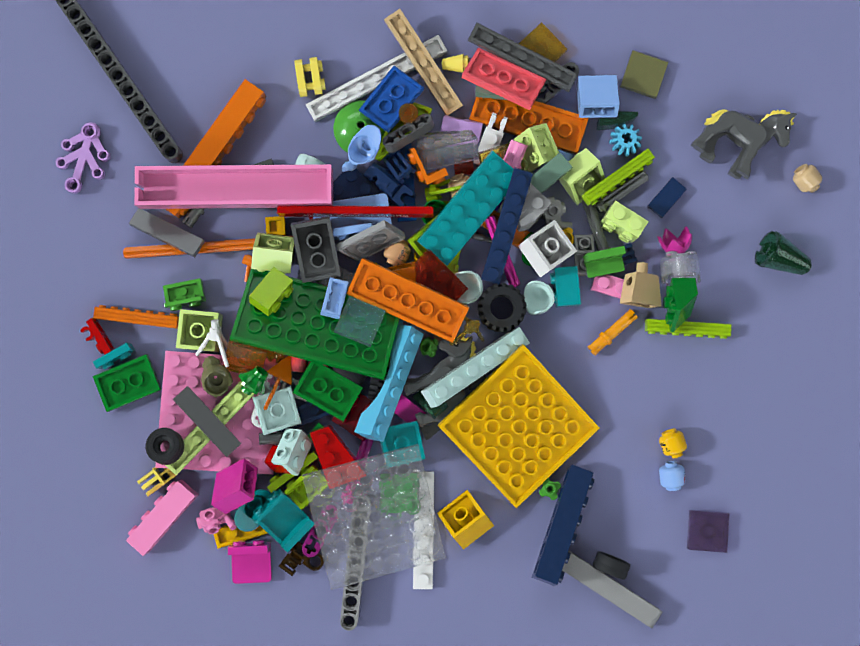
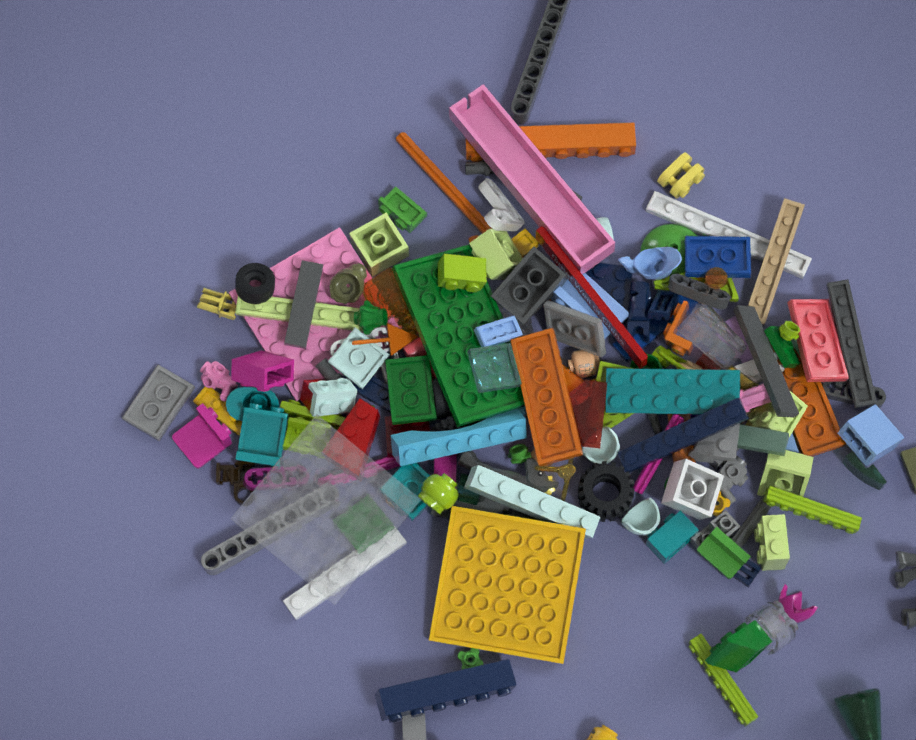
camera: 55 degrees right, 15 degrees down
(83, 154) = (458, 41): lavender plant -> none
(96, 332) = (311, 163): red plate -> none
(122, 353) = (295, 188): teal plate -> none
(127, 383) = (285, 219): green plate -> none
(136, 317) = (349, 184): orange piece -> none
(162, 517) = (187, 332): bright pink brick -> none
(166, 232) = (445, 156): dark grey tile -> none
(200, 573) = (158, 402): none -> light grey tile
(215, 335) = (387, 256): white plant -> none
(249, 224) = (504, 215): none -> white beam
(423, 429) = (439, 492): none -> lime piece
(455, 63) = (797, 290): light yellow cone -> none
(465, 519) = (382, 602): yellow slope -> none
(485, 93) = (789, 331): none -> lime plate
(491, 106) = (782, 347): none -> green plate
(496, 127) = (766, 361): none -> dark grey tile
(544, 43) = (881, 356): clear yellow plate -> none
(605, 338) = (663, 611): light orange pin -> none
(608, 285) = (706, 581): bright pink plate -> none
(621, 191) = (806, 525): dark grey axle -> none
(633, 140) = (857, 485): medium azure gear -> none
(641, 288) = (724, 605): tan torso -> none
(667, 197) = (830, 571): dark blue tile -> none

